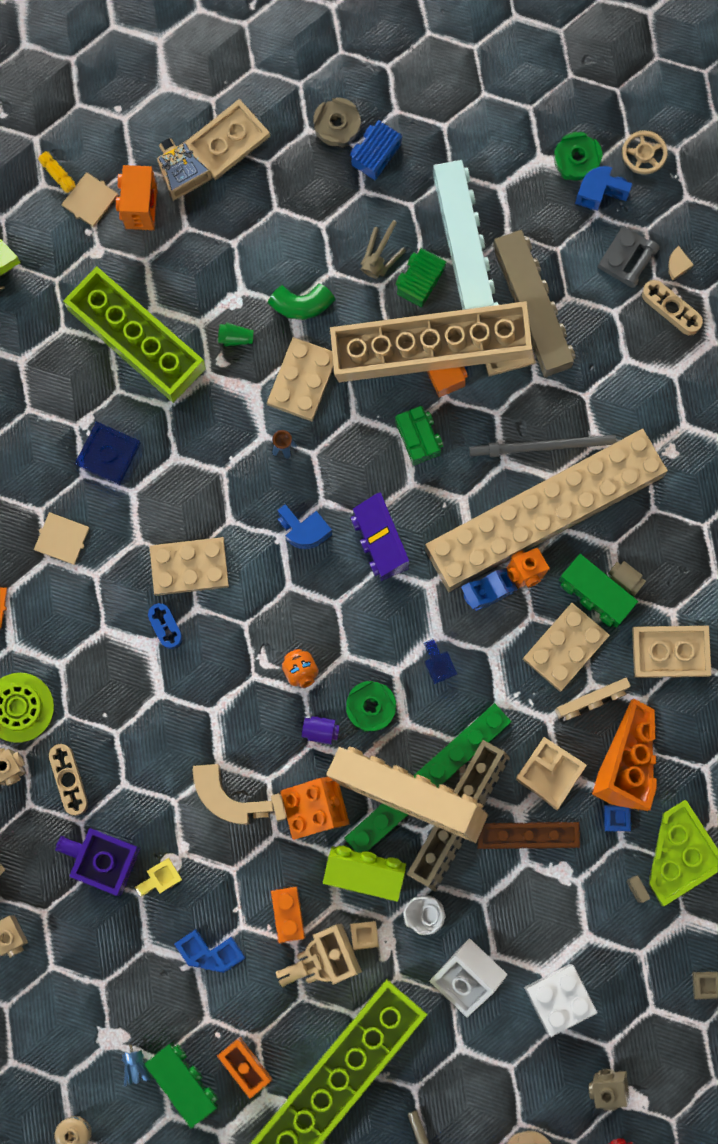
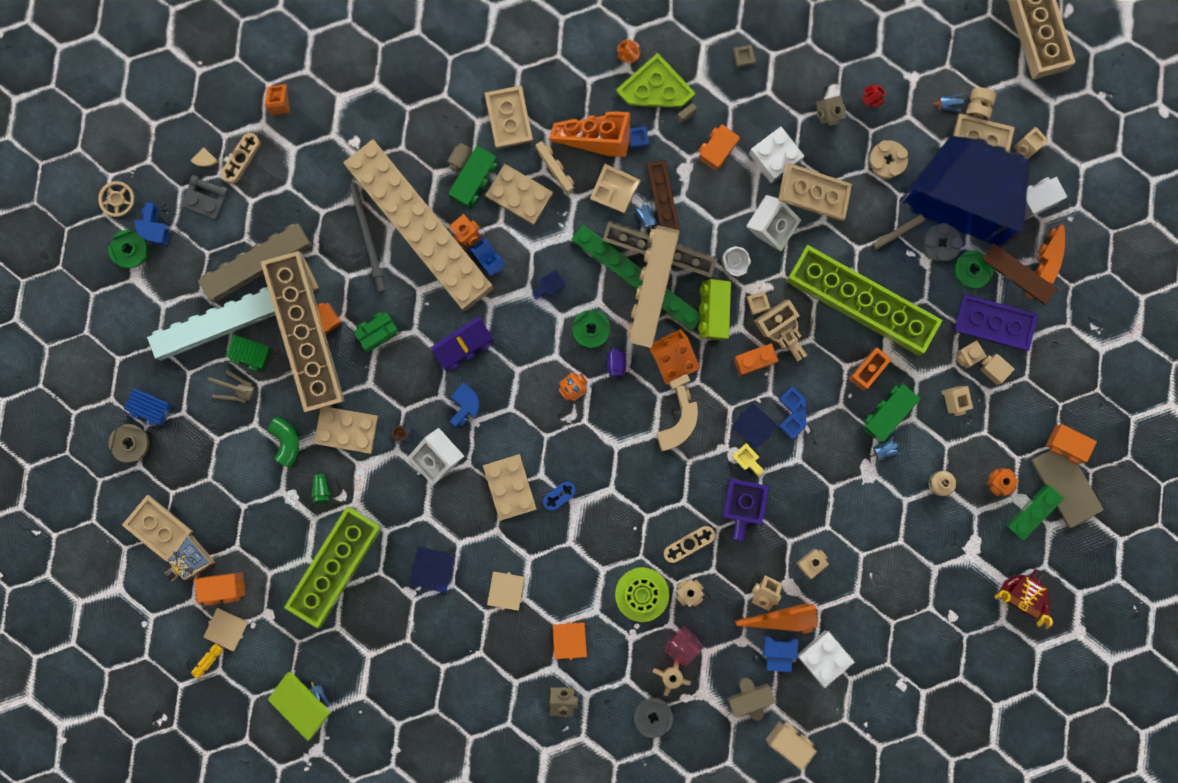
camera: 105 degrees left, 5 degrees up
(203, 897) = (754, 425): none -> clear blue piece
(246, 481) = (435, 456): none -> white slope
(498, 1042) = (814, 192): none -> tan tile
(506, 806) = (648, 218): none -> flat silver piece
(584, 922) = (719, 147): none -> orange brick

